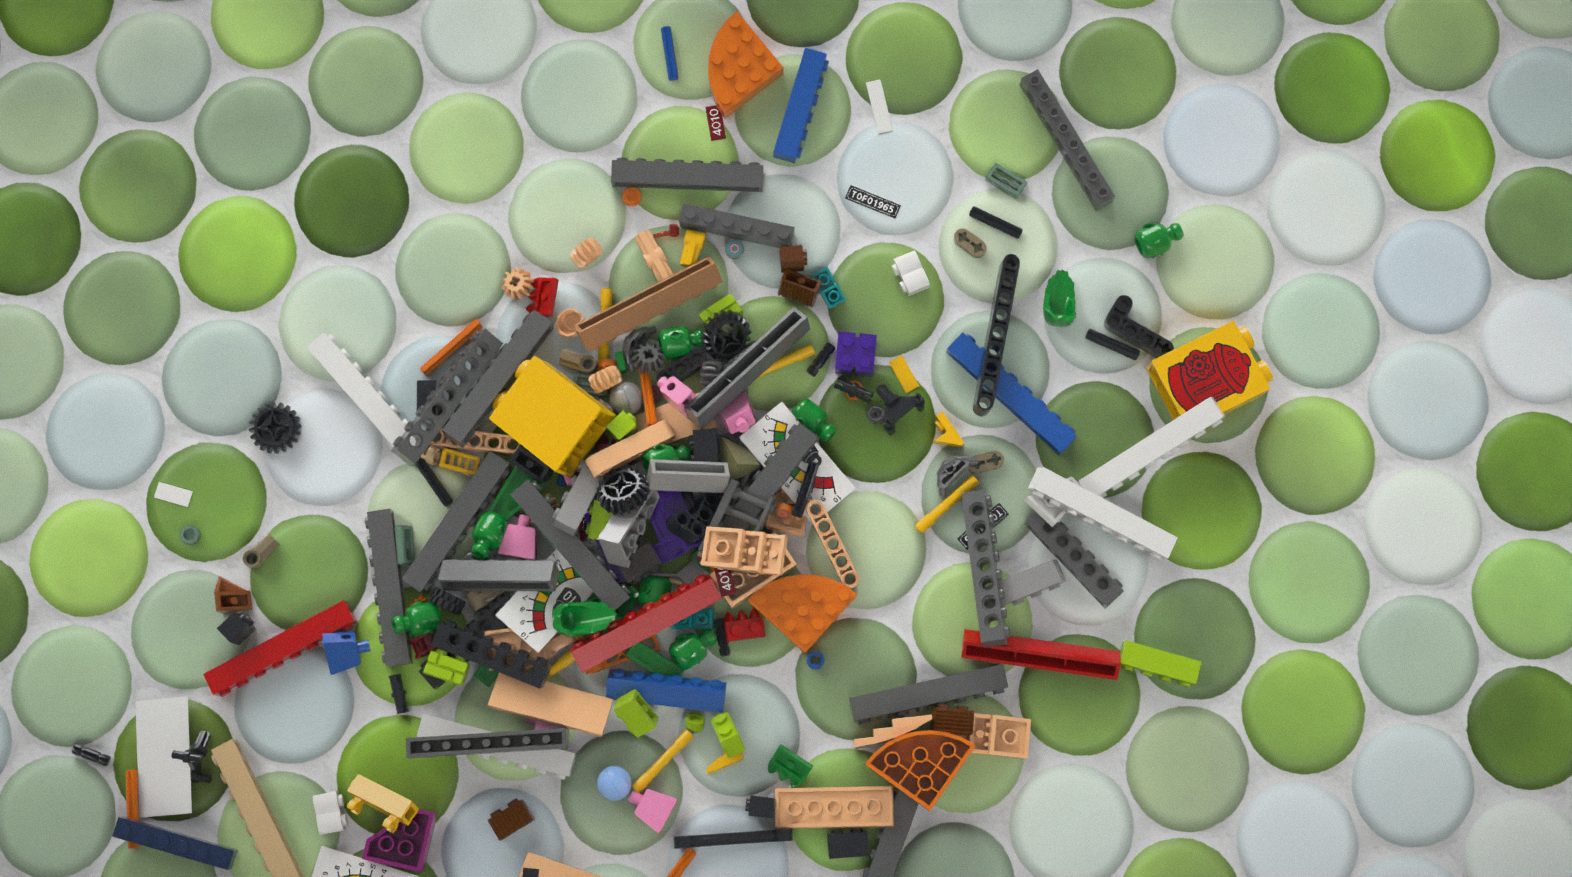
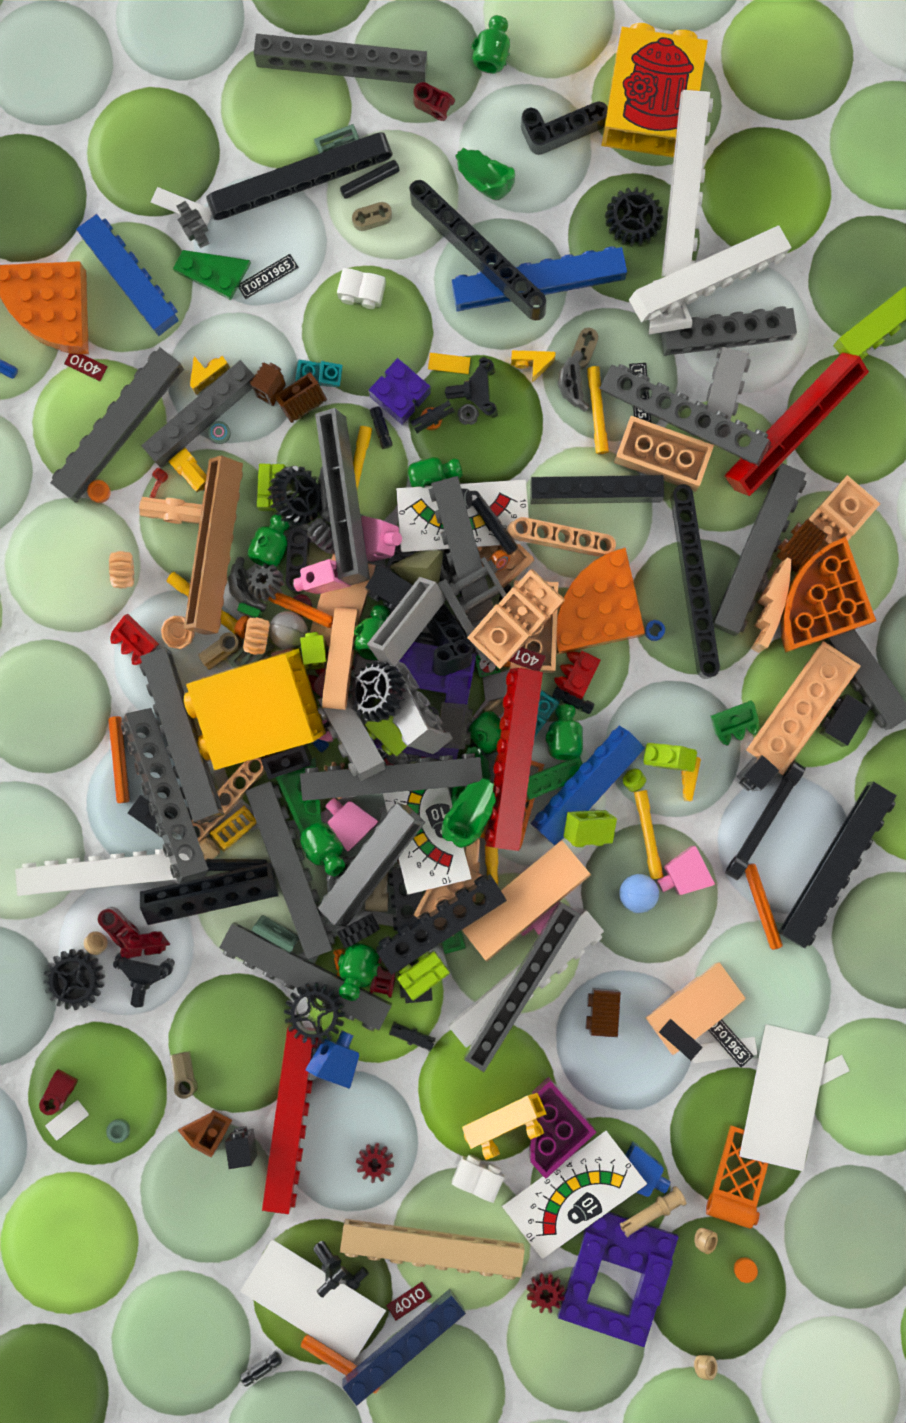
camera: 55 degrees left, 5 degrees up
(191, 473) = (59, 1090): none -> dark red piece
(209, 826) = (408, 1301): none -> dark red sticker
(291, 722) = (382, 1159): none -> dark red gear
(310, 424) = (95, 943): none -> tan tile
(310, 472) = (142, 975): none -> black axle
(333, 432) = (118, 927): none -> dark red piece
(338, 463) = (151, 942): none -> dark red hinge
(353, 600) = (317, 1023): none -> black gear
(400, 478) = (209, 893): none -> black brick
(513, 280) = (98, 660): light nougat gear -> none
(764, 209) = (203, 377): none -> yellow slope
(847, 162) = (212, 271): none -> green wing
(867, 124) = (192, 224): none -> dark grey gear
(880, 660) = (698, 571): none -> black beam
(886, 544) = (597, 489): none -> black brick
(947, 573) = (663, 452): none -> light nougat brick
(960, 172) = (299, 176): none -> black beam
(1085, 229) = (435, 104): none -> dark red piece
(1112, 344) = (558, 157): black axle -> none
(1125, 435) = (645, 205): none -> black gear

